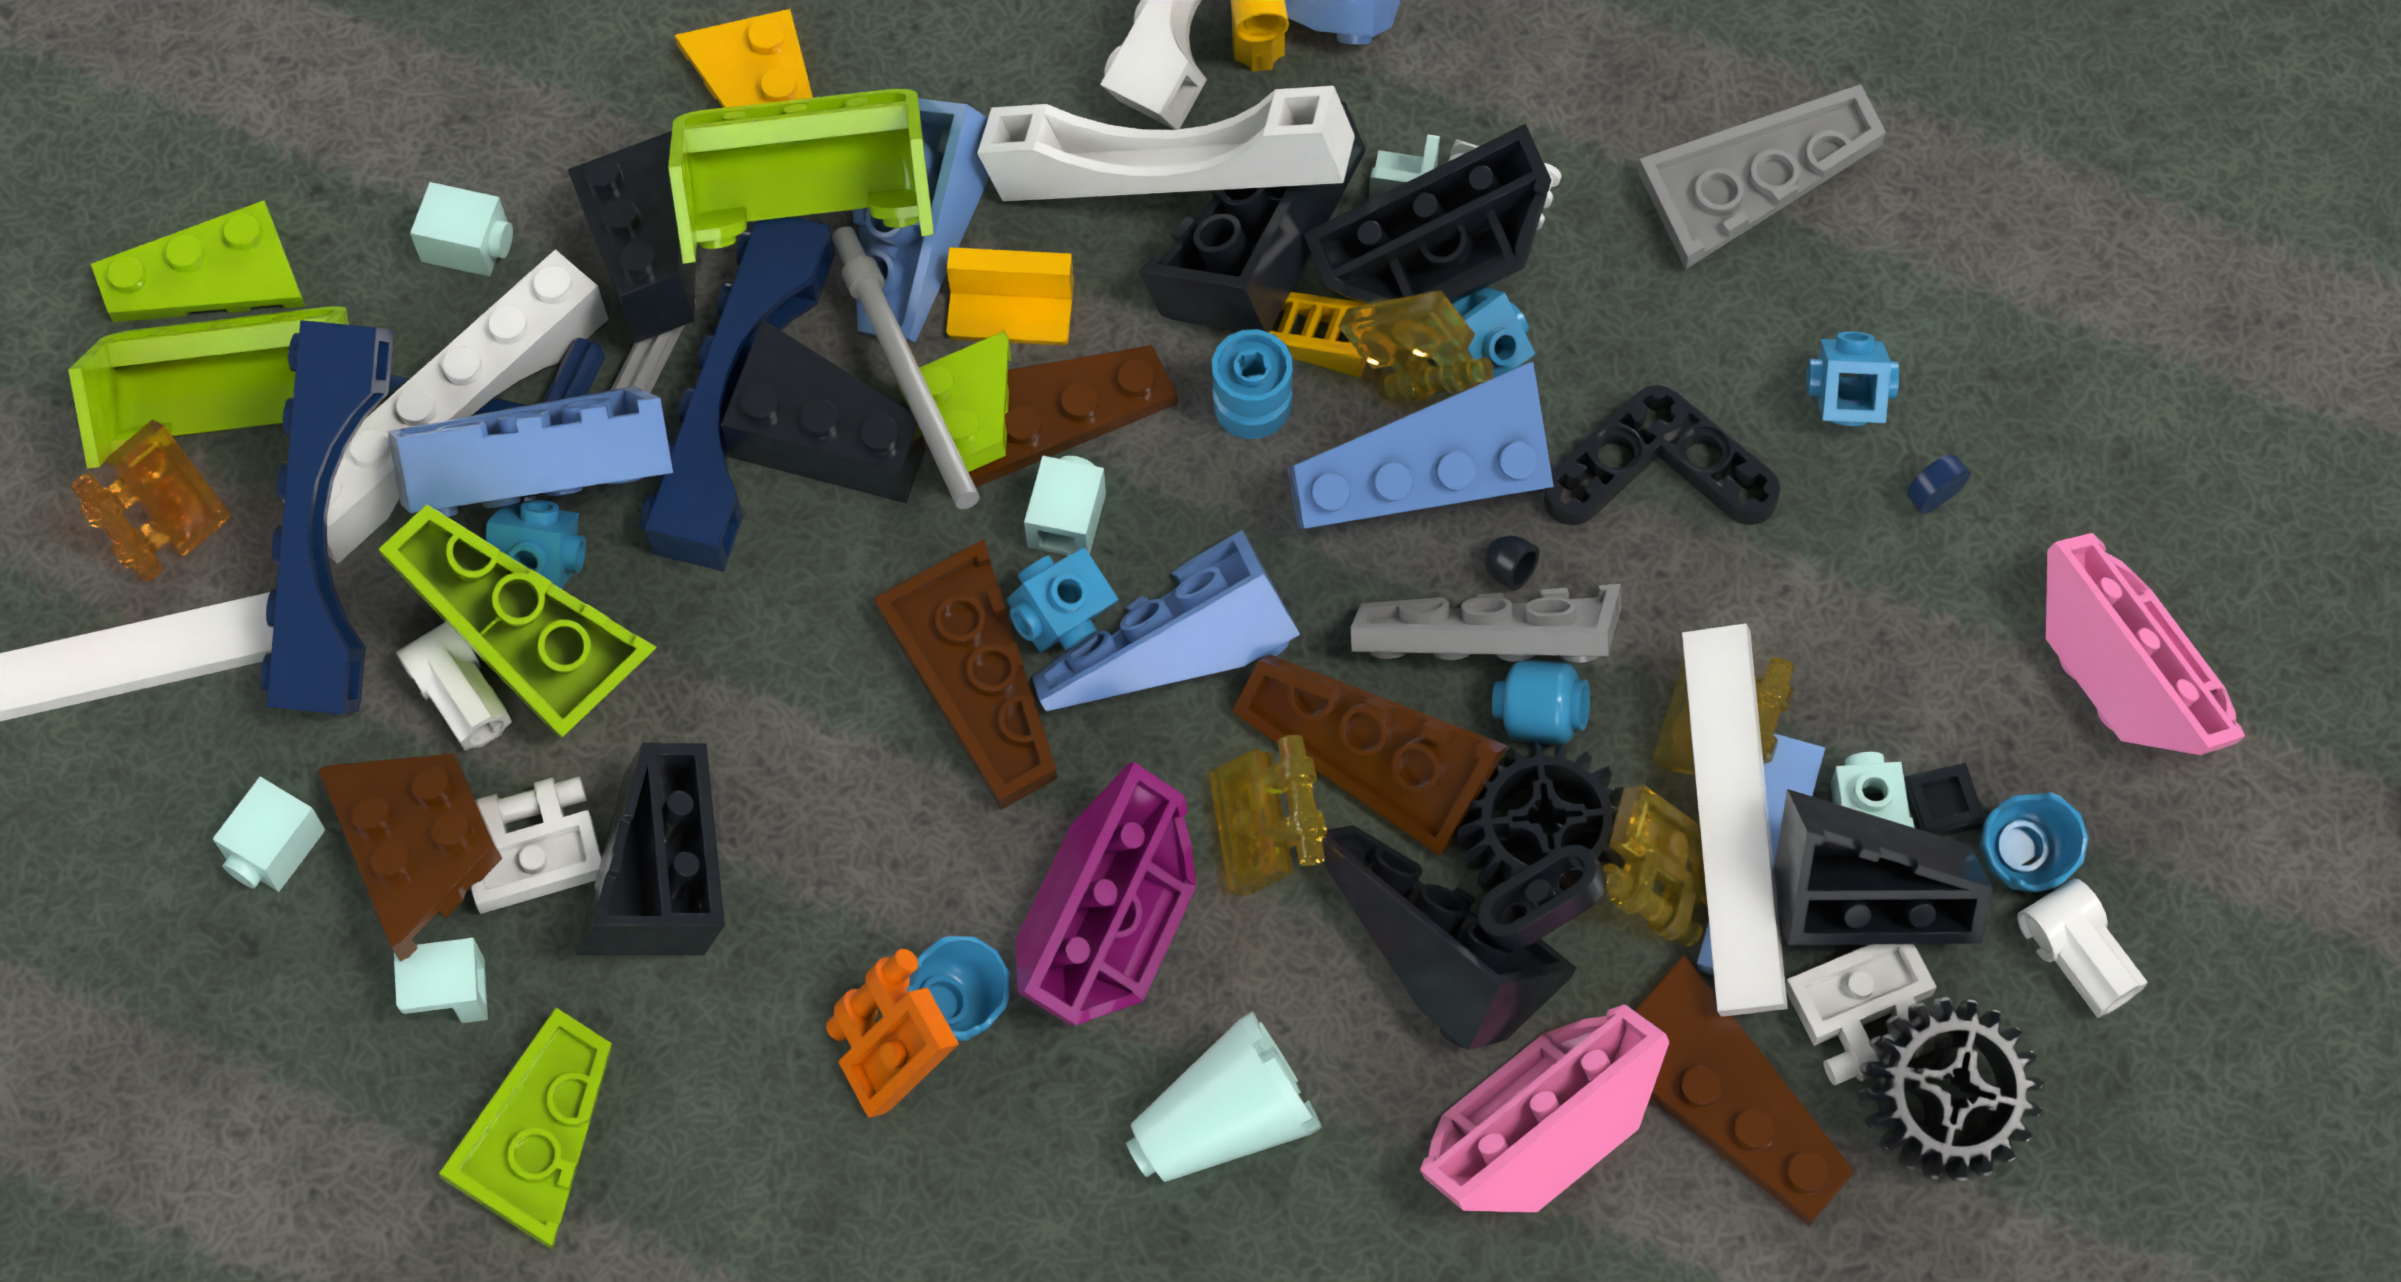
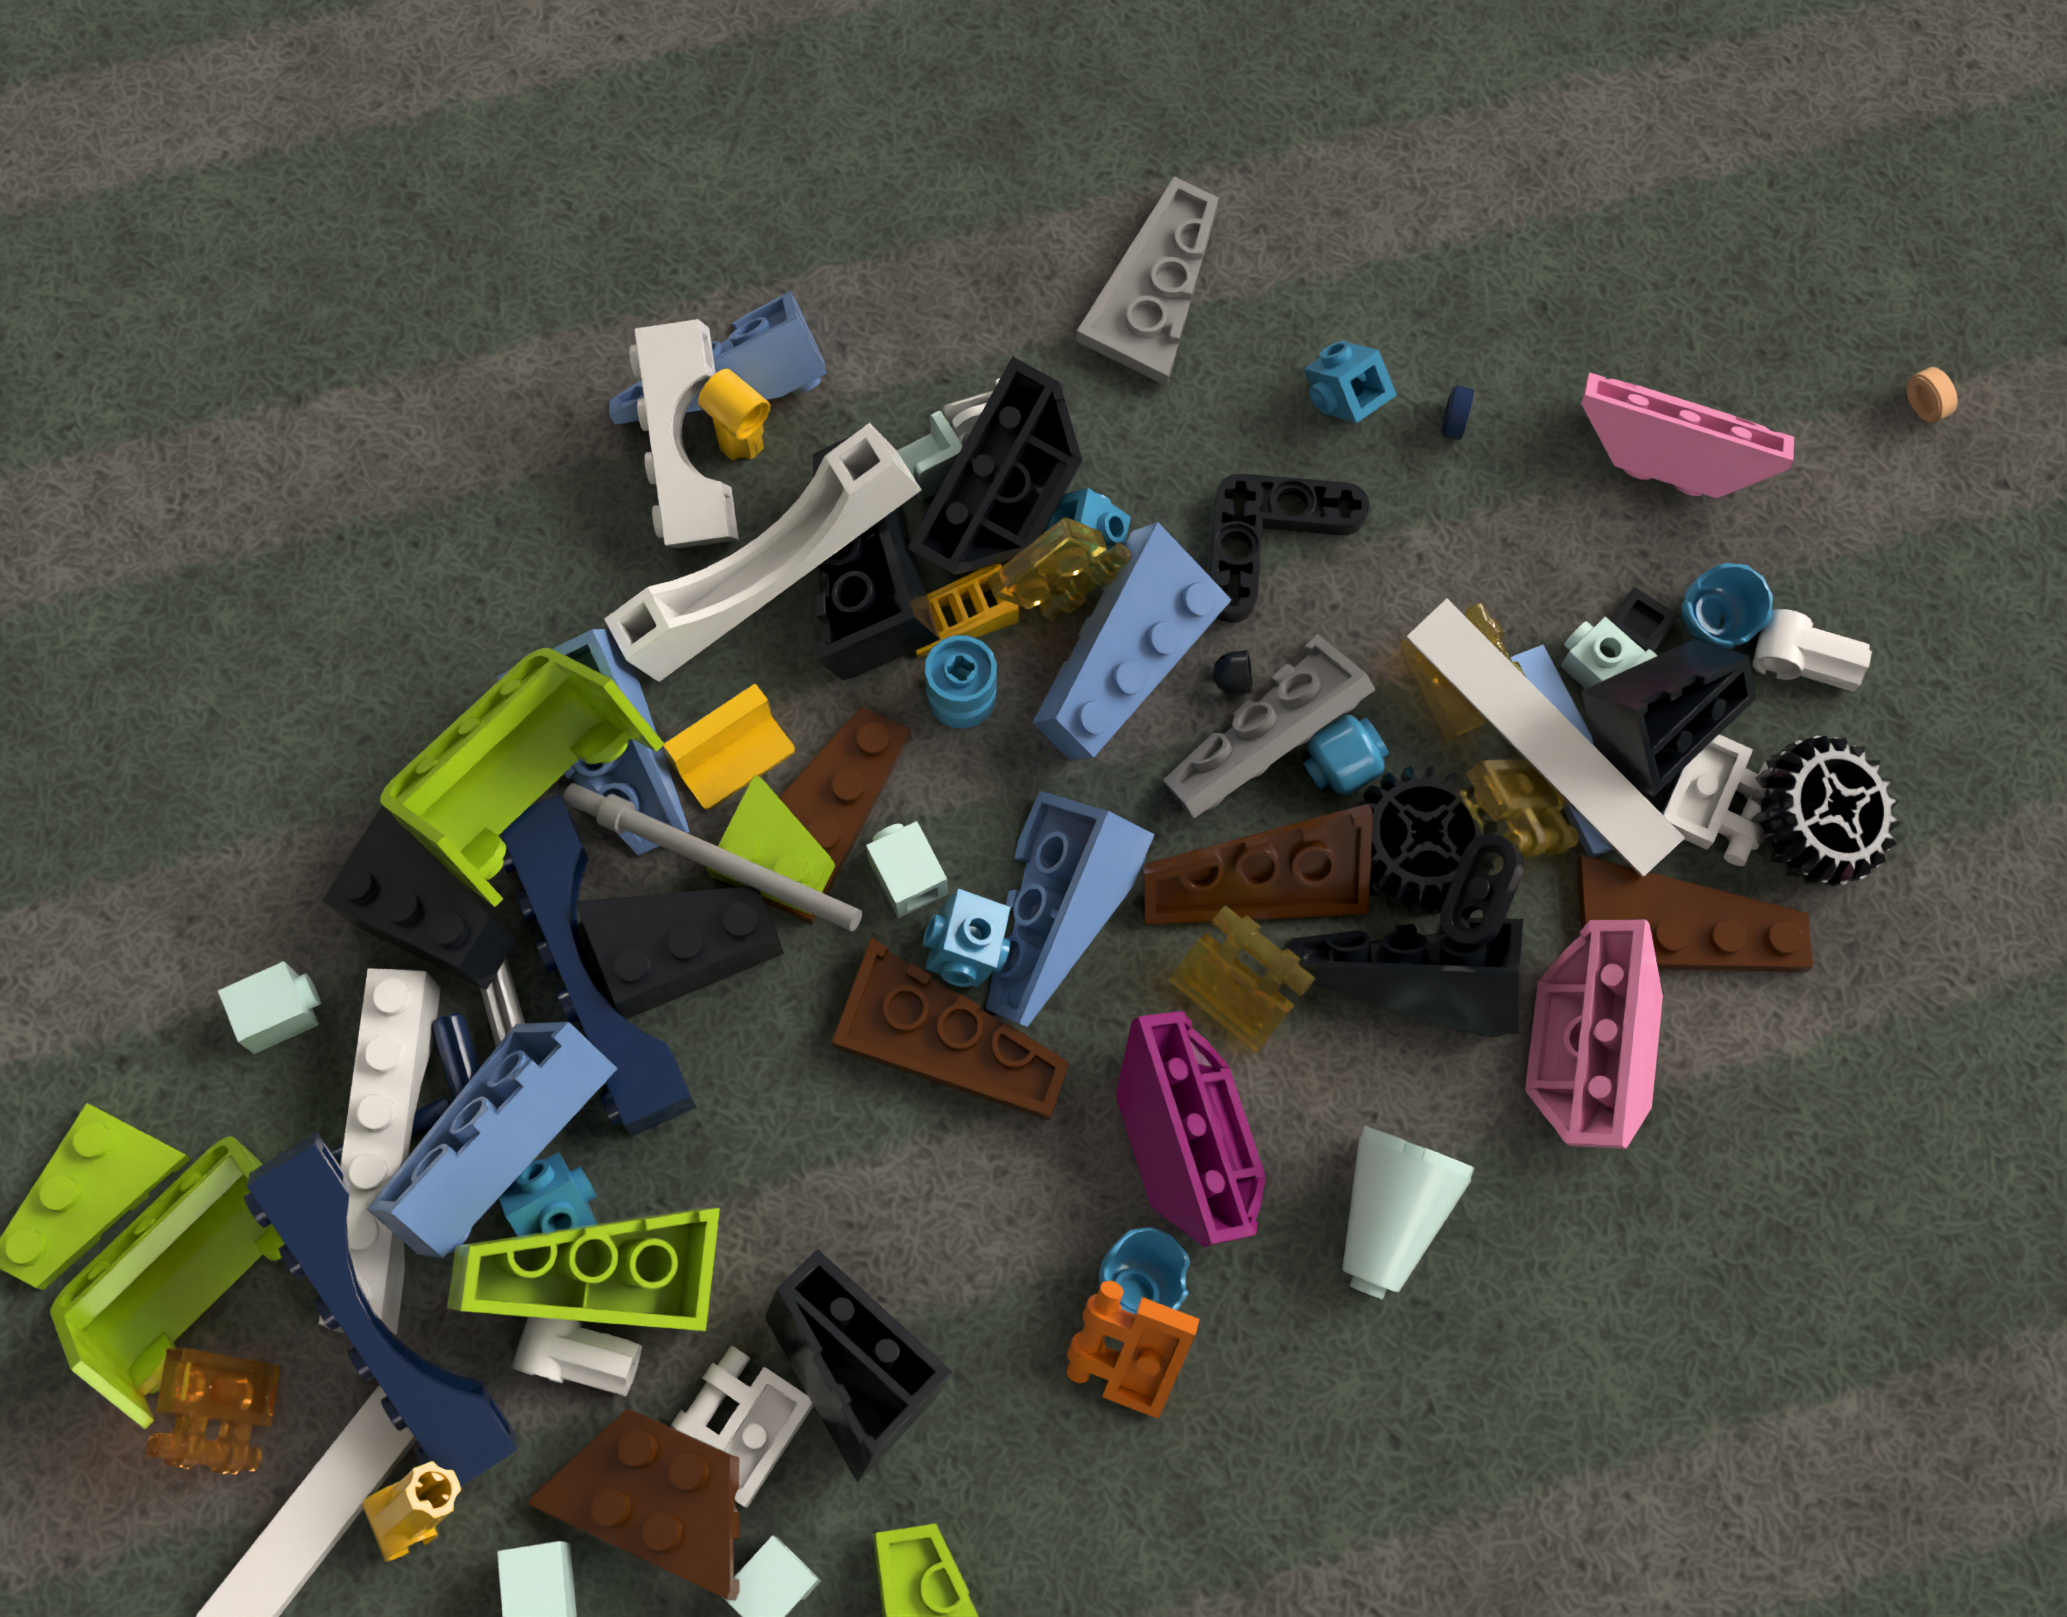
camera: 45 degrees left, 5 degrees up
(225, 694) = (411, 1509): none -> yellow piece
(749, 60) = (382, 717): yellow wing -> none

